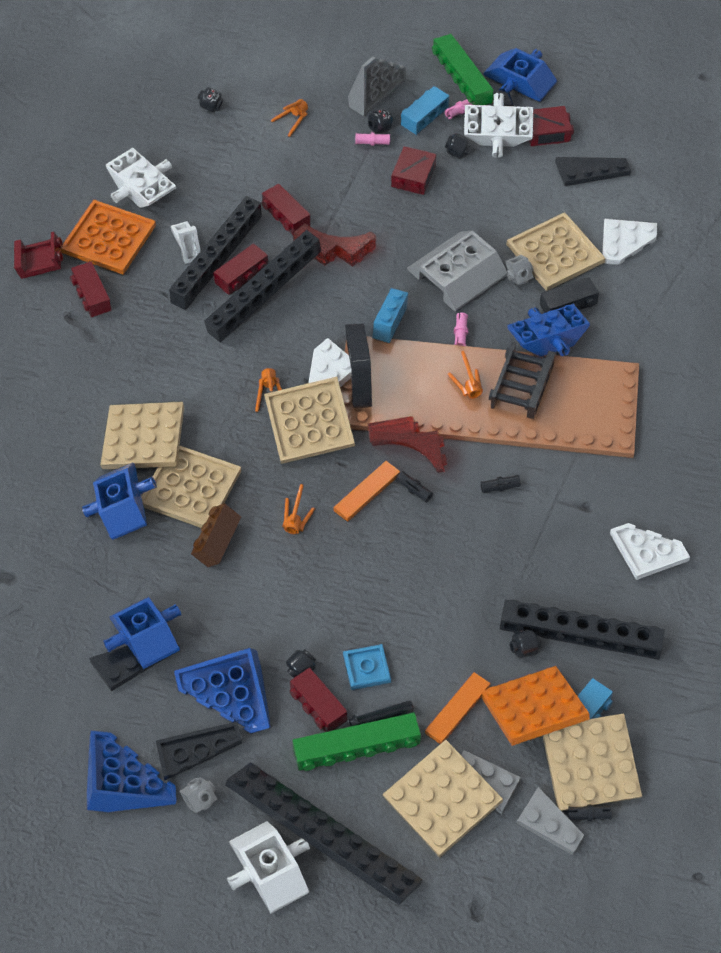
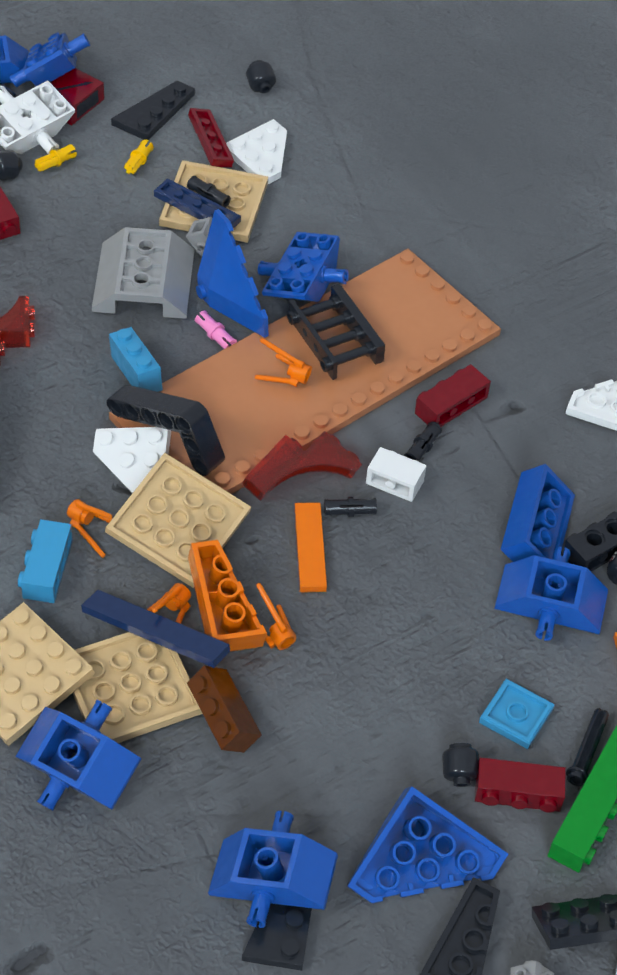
camera: 50 degrees left, 5 degrees down
(222, 390) = (45, 561): none -> dark azure brick
(229, 467) = (156, 628): none -> dark blue tile
(262, 461) = (174, 599): none -> orange plant
(277, 479) = (222, 599): none -> orange wedge
(461, 488) = (396, 474): none -> white brick
(464, 624) = (553, 593): none -> blue slope
(491, 303) = (225, 281): none -> blue slope
(493, 160) = (55, 158): none -> yellow axle
(509, 578) = (537, 515): none -> blue slope
(537, 247) = (192, 202): none -> dark blue tile
(543, 193) = (138, 157): none -> yellow axle
(550, 470) = (452, 396): none -> dark red brick
(552, 94) = (50, 60): none -> blue slope
(552, 242) = (208, 191): none -> black pin
(580, 293) = (279, 232): black brick -> none
(600, 209) = (210, 137): none -> dark red plate
(681, 189) = (260, 76): none -> black head

